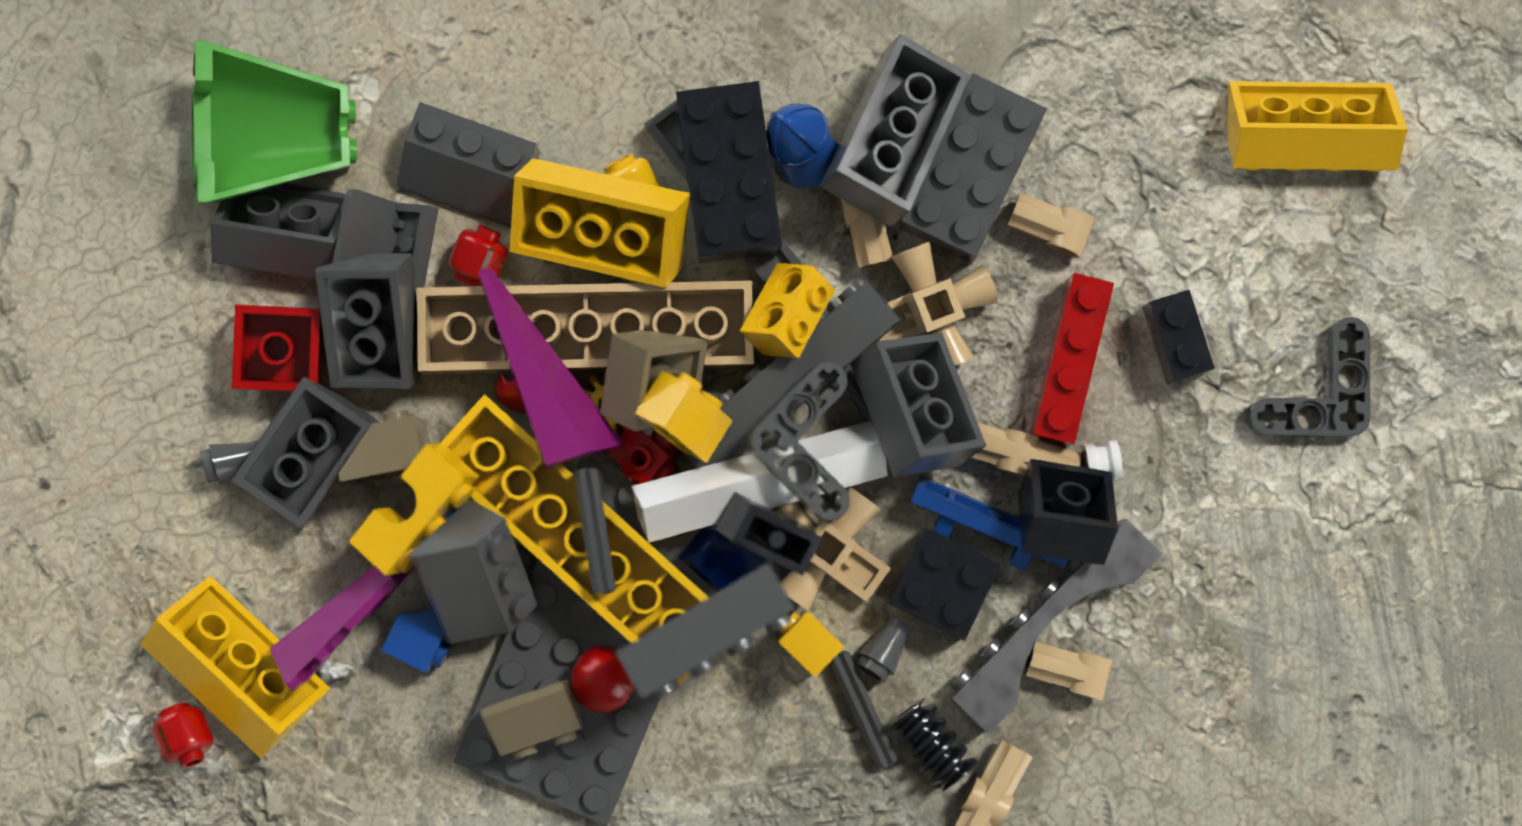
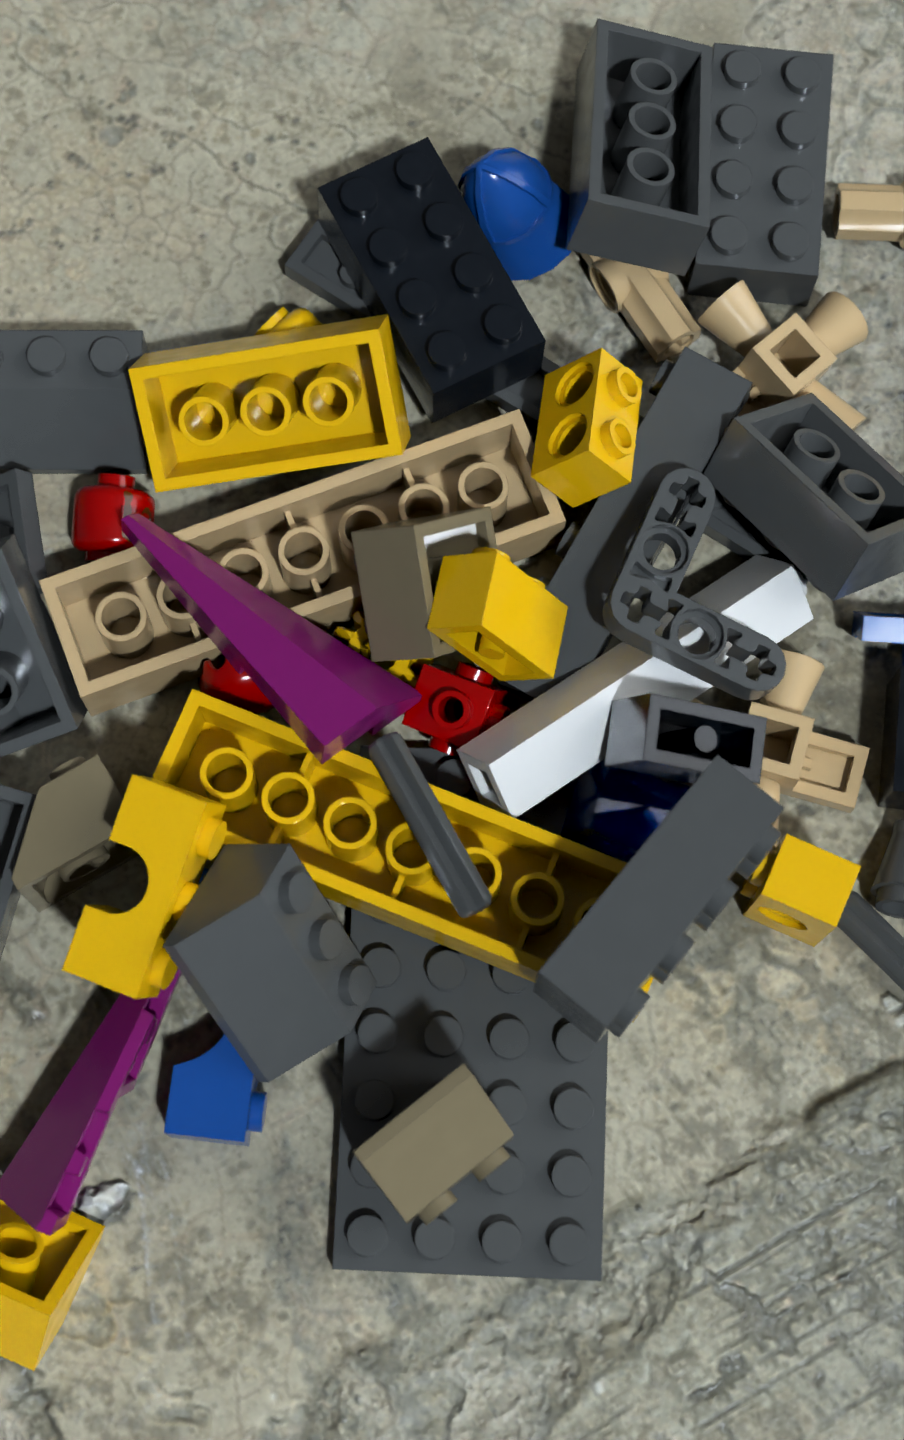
camera: 20 degrees left, 10 degrees down
(600, 680) = (515, 1056): red hair -> none

